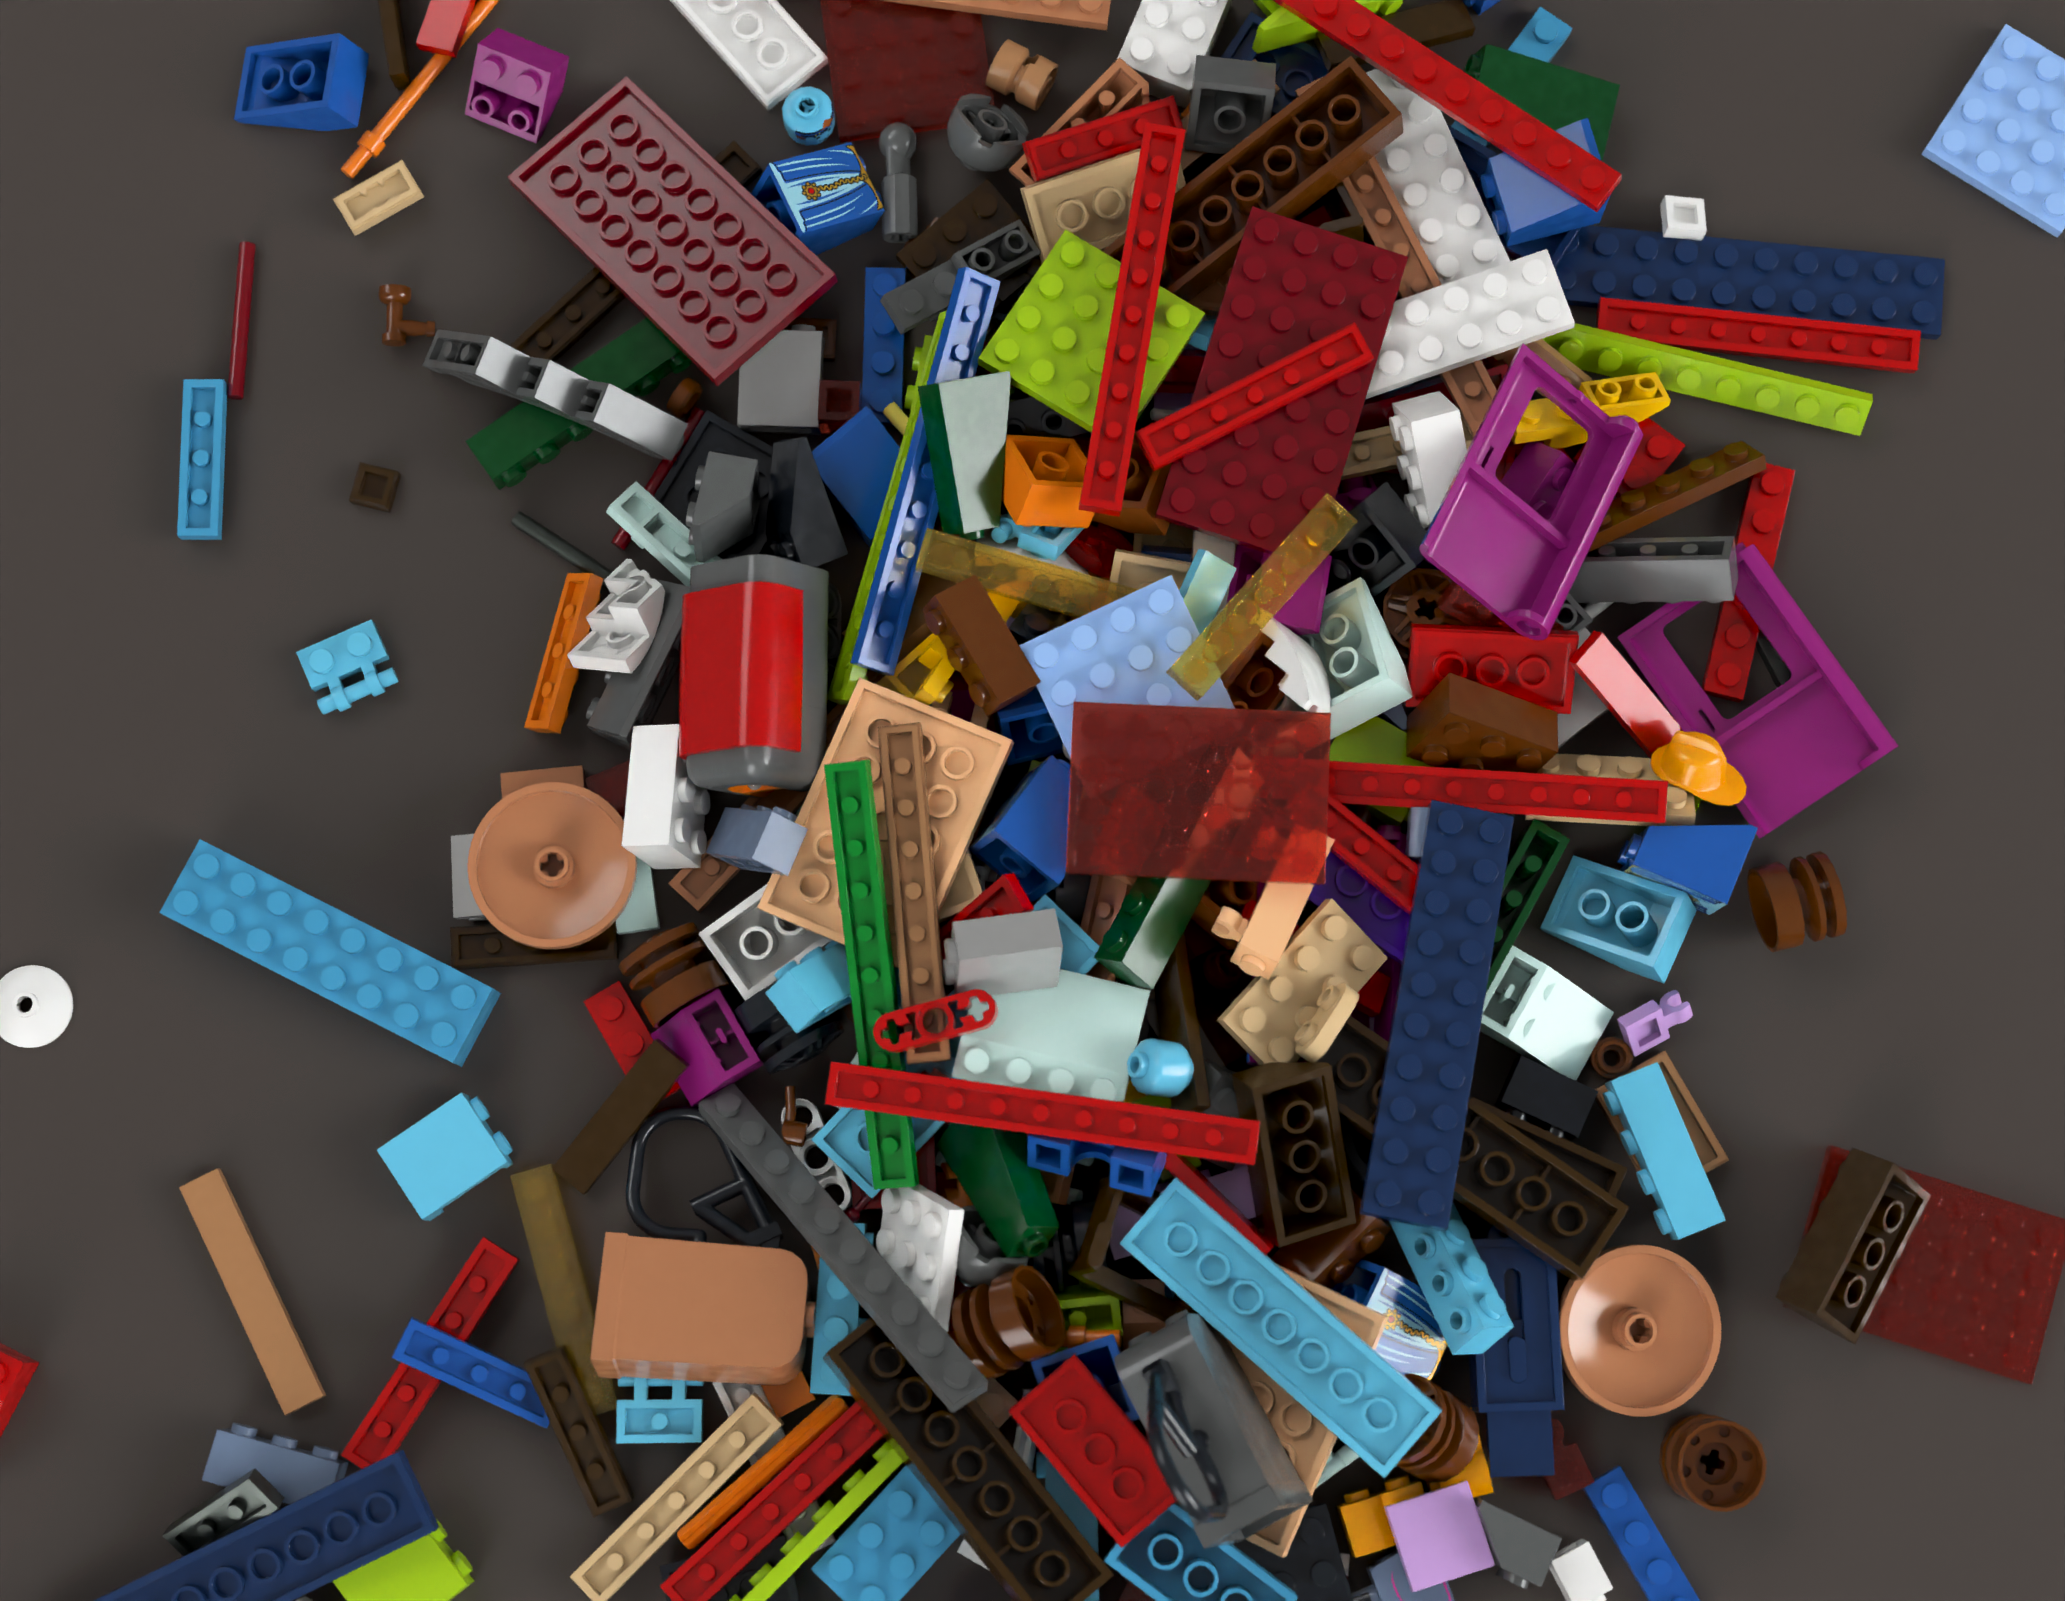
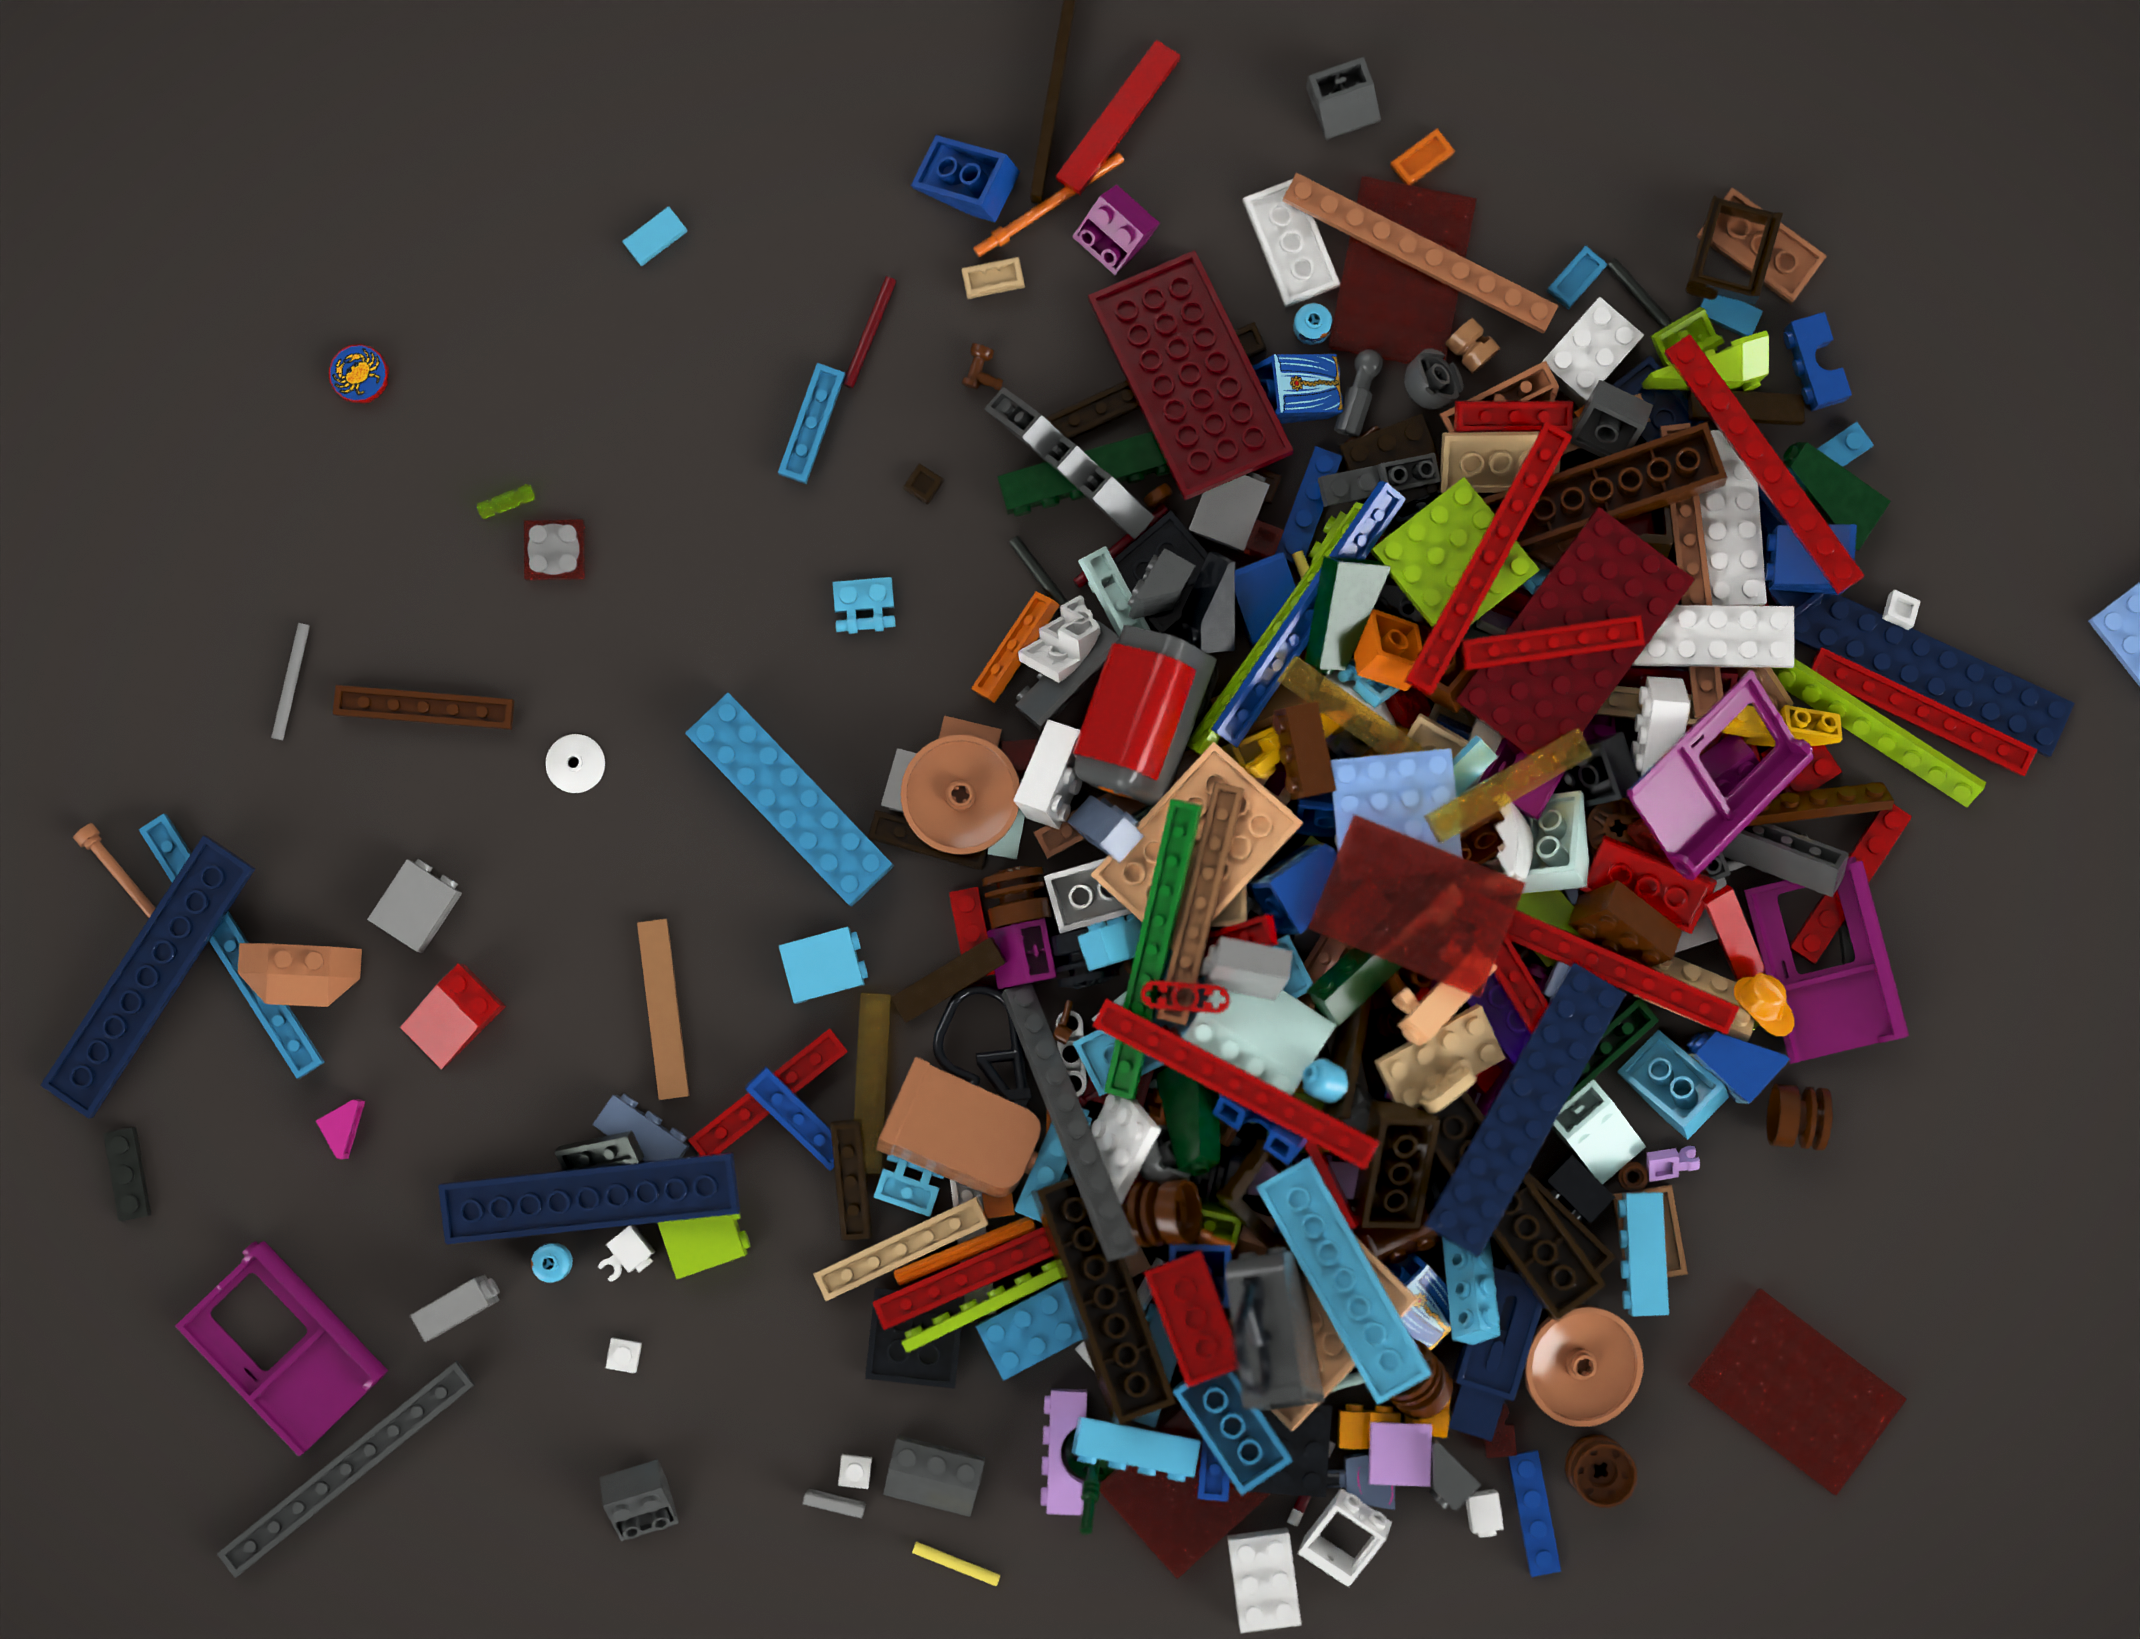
camera: 20 degrees right, 5 degrees up
(1853, 1244) = (1750, 1361): dark brown slope -> none

